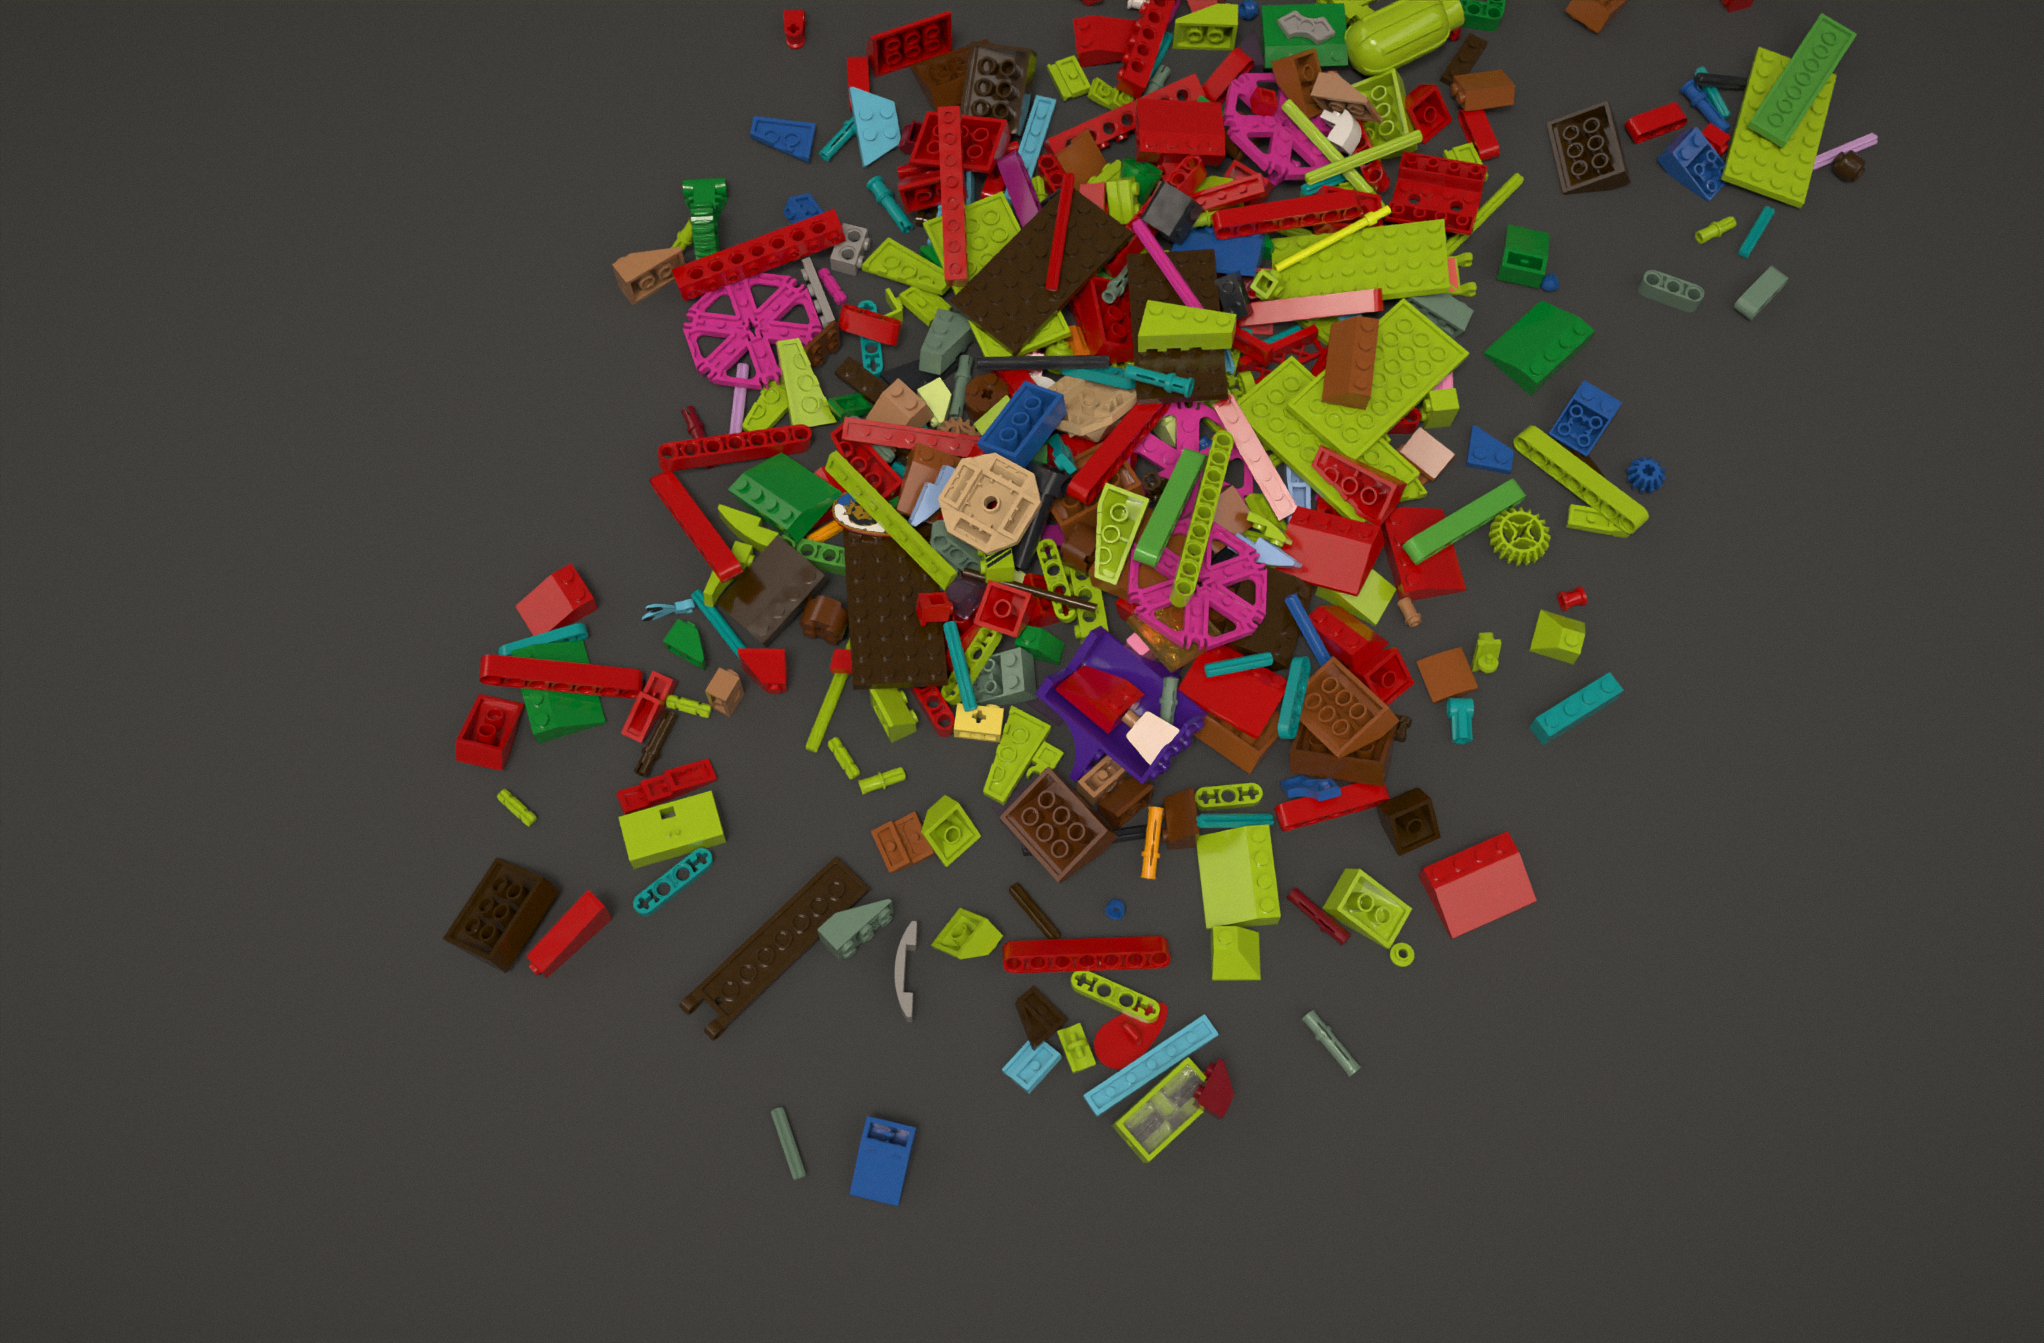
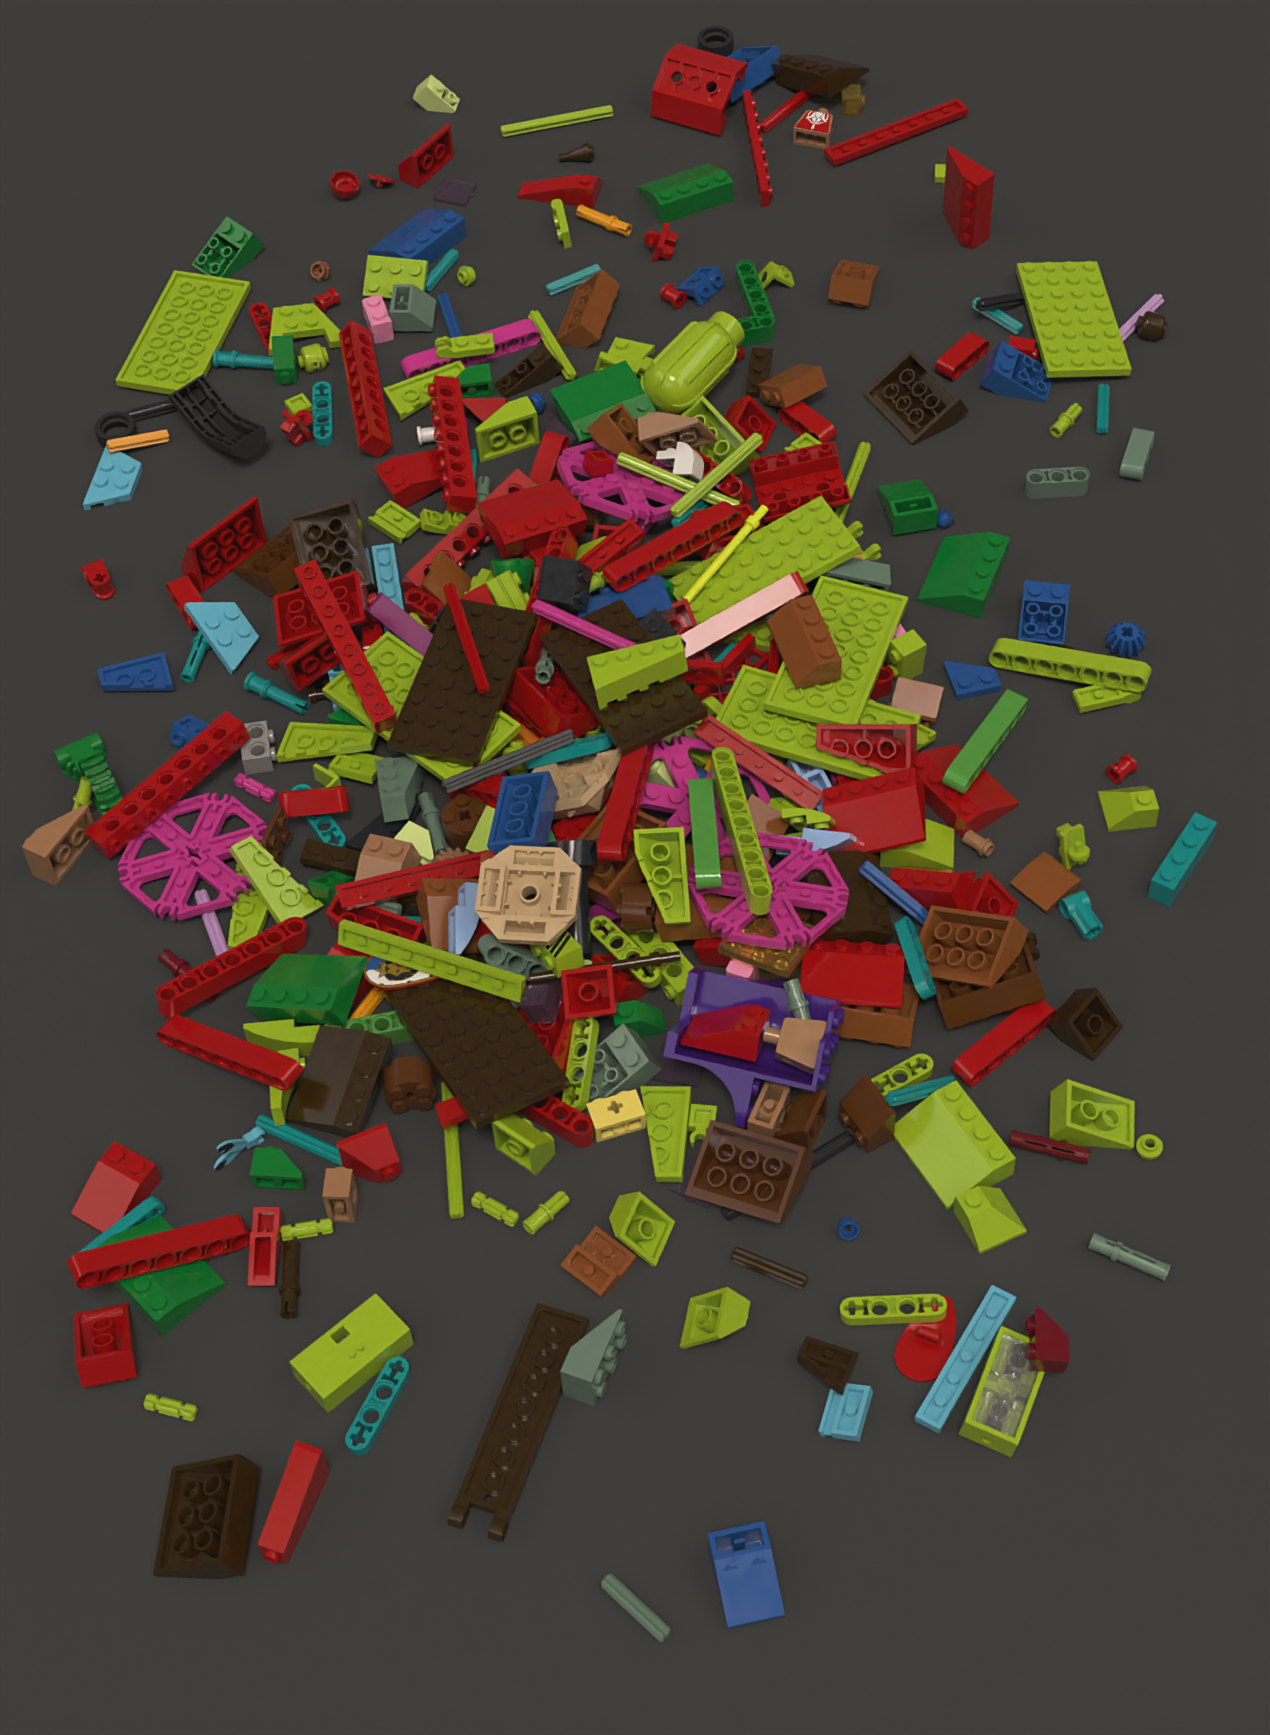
camera: 20 degrees left, 15 degrees down
(666, 787) = (327, 1311): red slope -> none
(816, 290) = (245, 795): light grey plate -> none
(907, 943) = (681, 1408): light grey slope -> none
(909, 137) = (266, 628): dark red piece -> none
(933, 607) = (519, 1018): red brick -> none
(960, 666) = (572, 1065): teal axle -> none
(1062, 453) = (572, 829): teal plate -> none
(1076, 1048) = (883, 1374): lime hips -> none
(1086, 954) = (830, 1282): red beam -> none
(1150, 855) = (853, 1157): light orange pin -> none
(1154, 485) = (678, 817): dark brown piece -> none
(1168, 382) = (648, 722): teal pin -> none
(1238, 664) = (846, 947): teal axle -> none
(1262, 286) = (681, 609): lime brick -> none
(1296, 25) = (610, 390): light grey tile -> none
(1315, 788) = (982, 1030): blue tile -> none
(1478, 885) = (1183, 1051): slope -> none
(1514, 524) = (1028, 739): lime gear -> none
(1700, 100) = (990, 324): blue pin -> none
(1802, 80) = (1071, 273): bright green plate -> none

